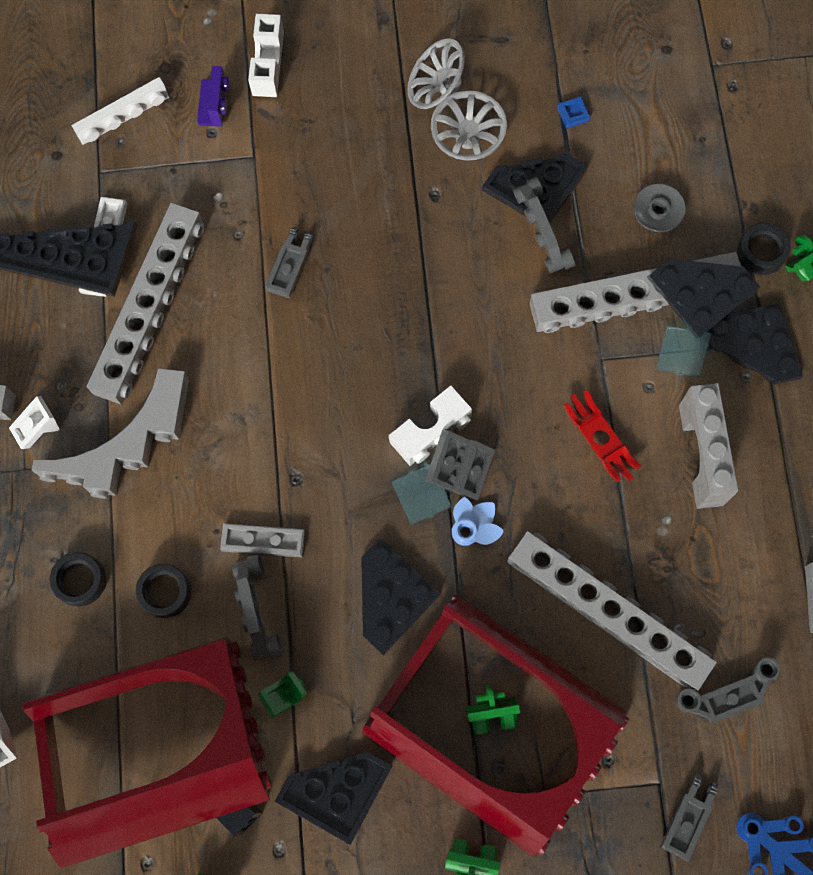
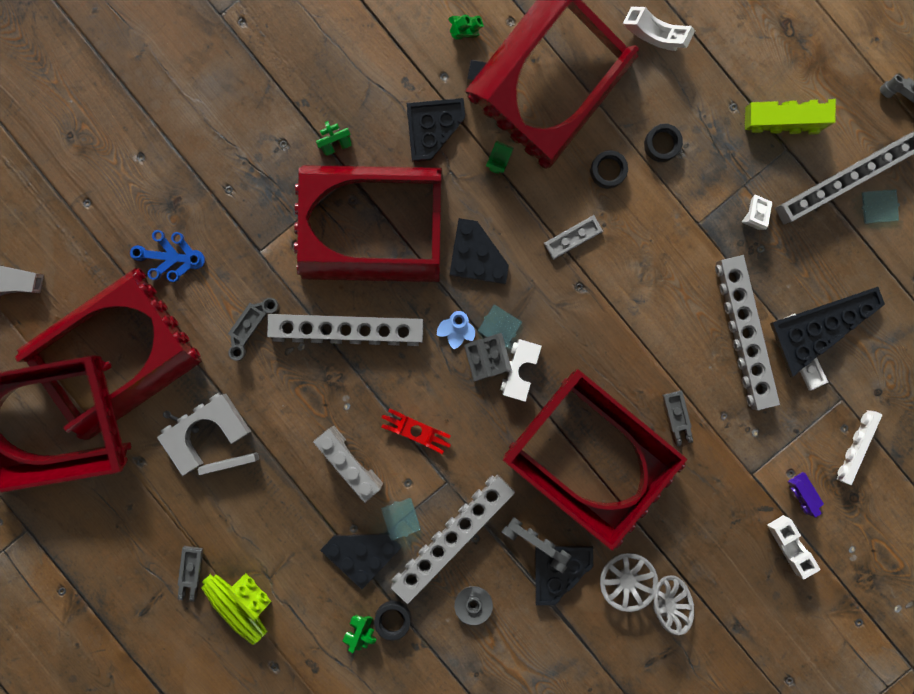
camera: 140 degrees right, 15 degrees up
(101, 467) = (686, 268): light grey arch -> none
(252, 618) = (557, 196): dark grey plate -> none
(449, 203) = (656, 460): none -> dark red panel
(492, 706) = (377, 229): green hips -> none
(573, 112) = (569, 639): blue tile -> none
(689, 820) = (231, 241): dark grey hinge -> none
(702, 291) = (411, 563): black plate -> none

